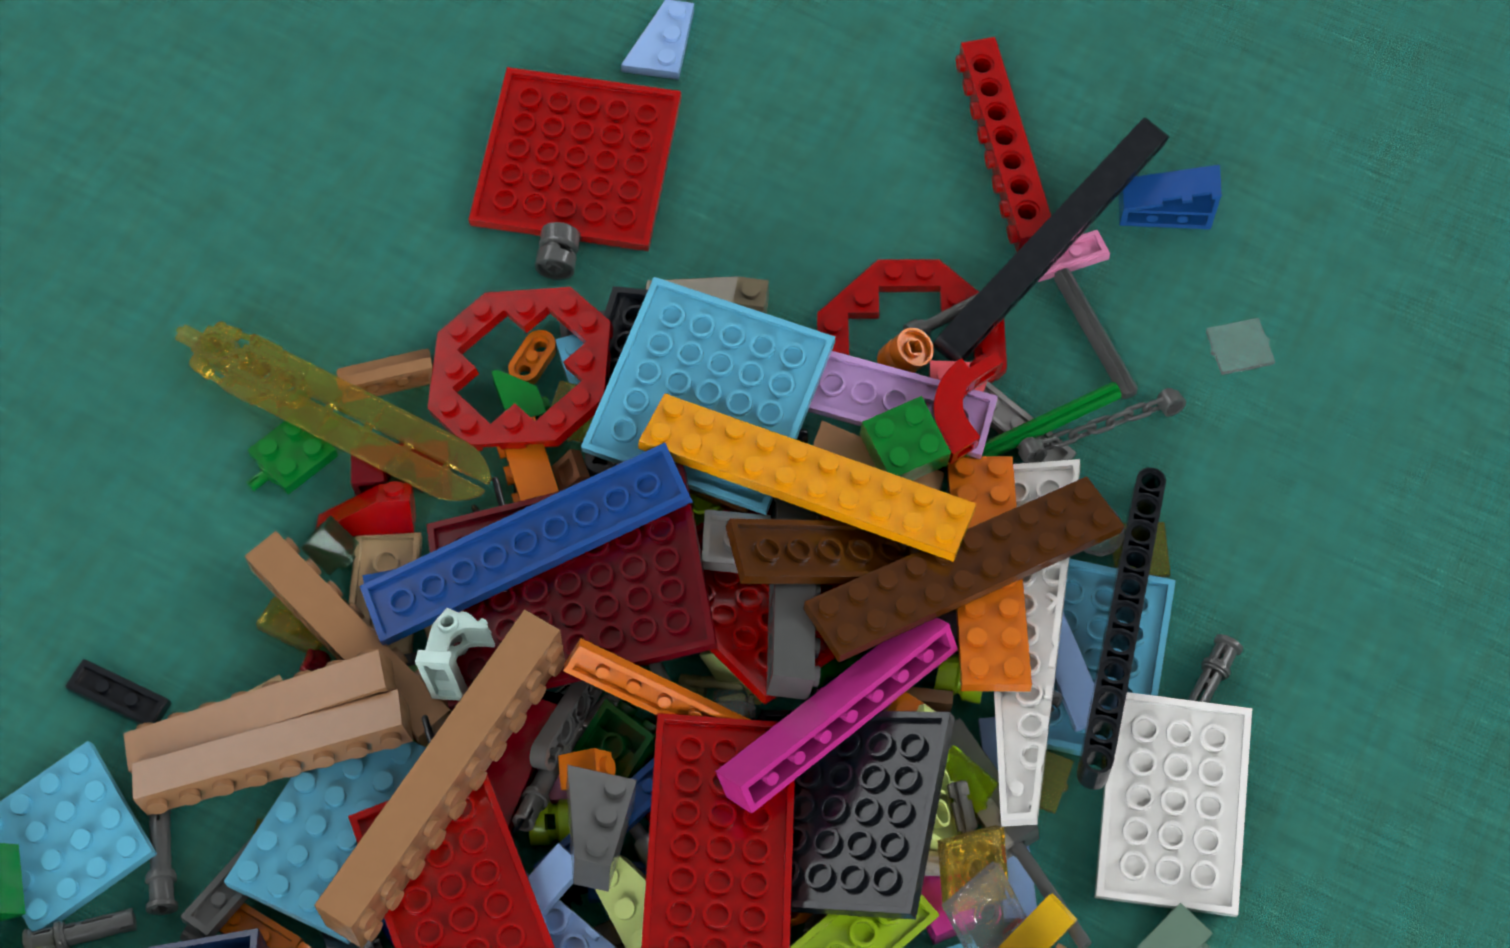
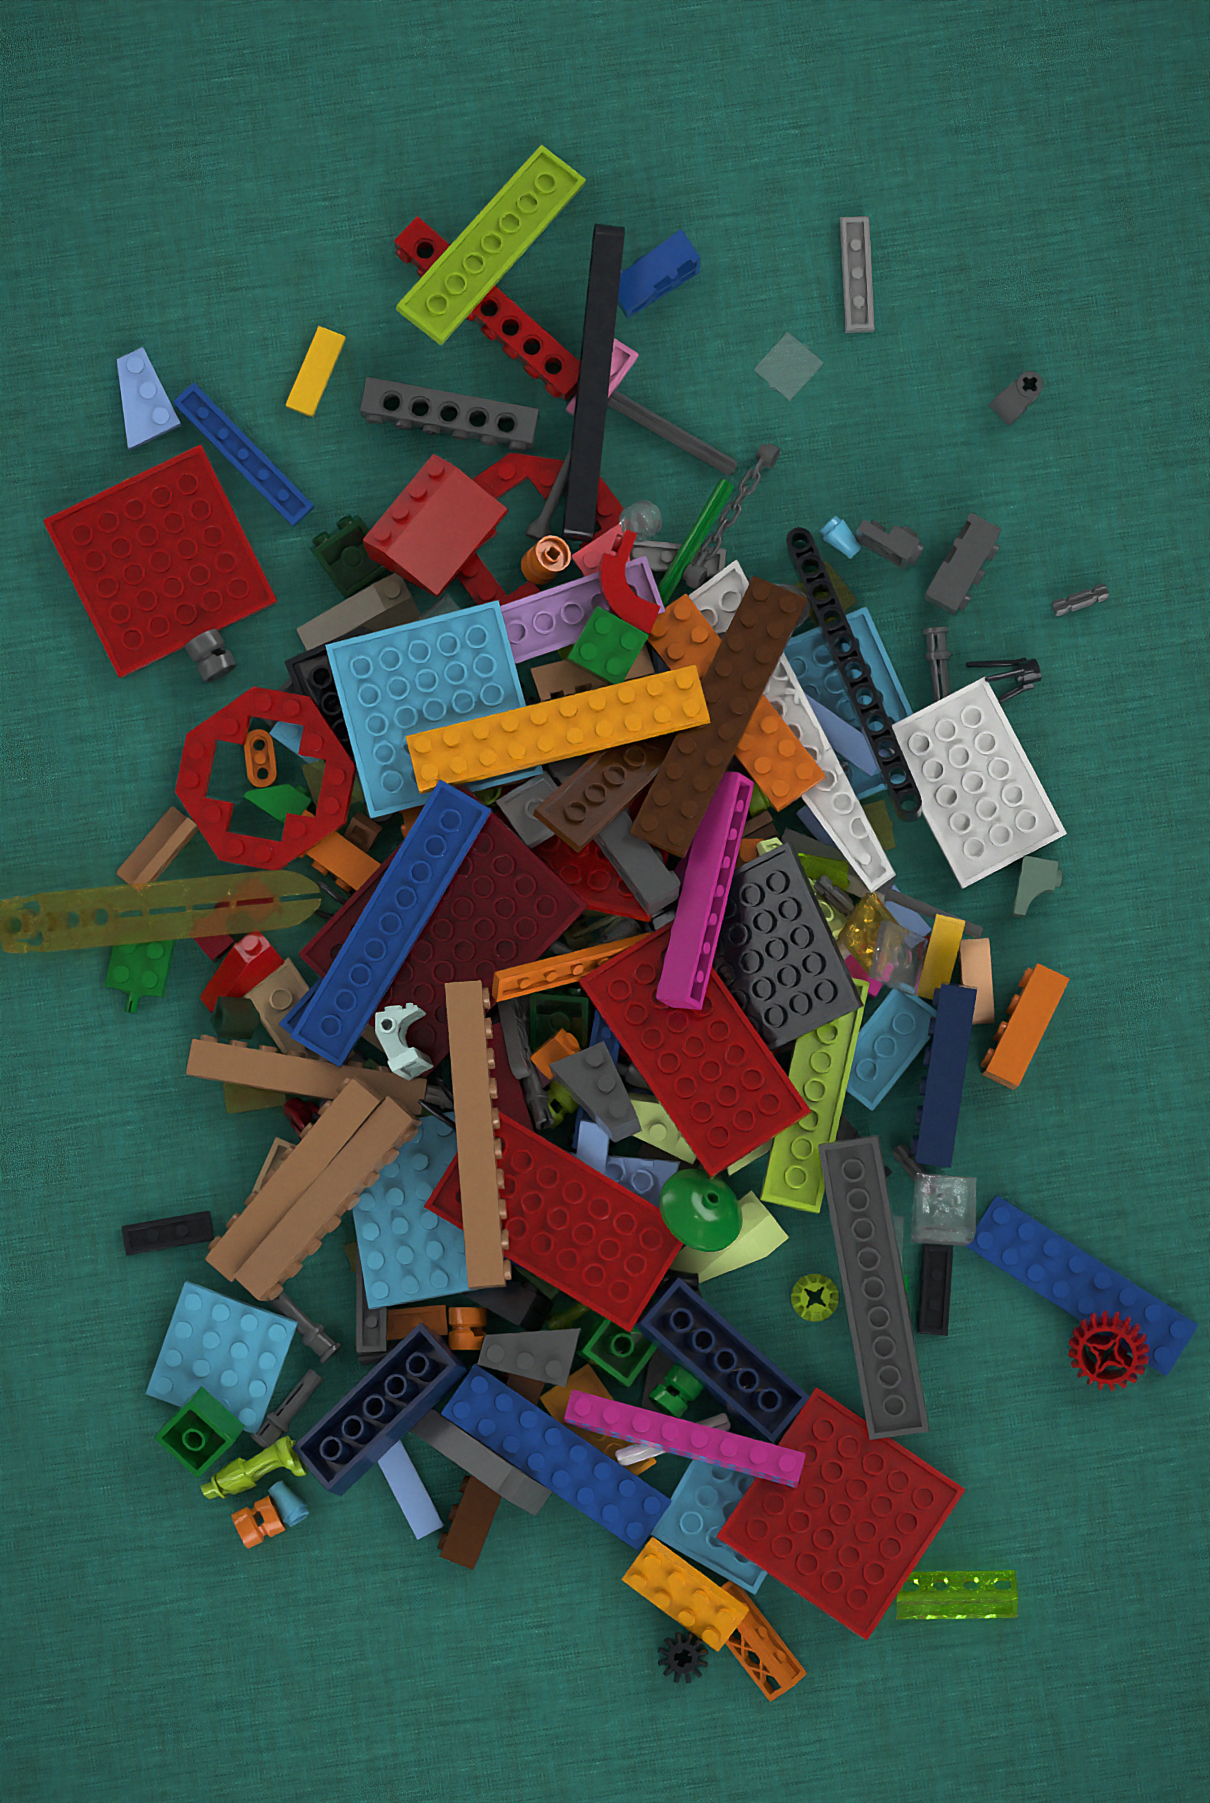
camera: 30 degrees left, 20 degrees up
(711, 127) = (243, 455): none -> blue plate
(738, 247) = (345, 556): none -> dark green plate
(820, 104) = (315, 371): none -> yellow tile
(825, 262) = (434, 526): none -> red slope
(925, 200) = (380, 391): none -> dark grey brick
(1016, 379) = (642, 519): none -> clear head
(1040, 90) = (490, 245): none -> lime plate
(1191, 507) = (839, 536): none -> medium azure cone
(1238, 540) = (898, 547): none -> dark grey plate
(1292, 737) = (1024, 672): none -> black plant
(1297, 602) = (964, 565): none -> dark grey wedge
(1354, 312) = (857, 274): none -> light grey tile
(1392, 710) = (1080, 599): none -> dark grey axle
(1444, 495) = (1014, 400): none -> dark grey piece

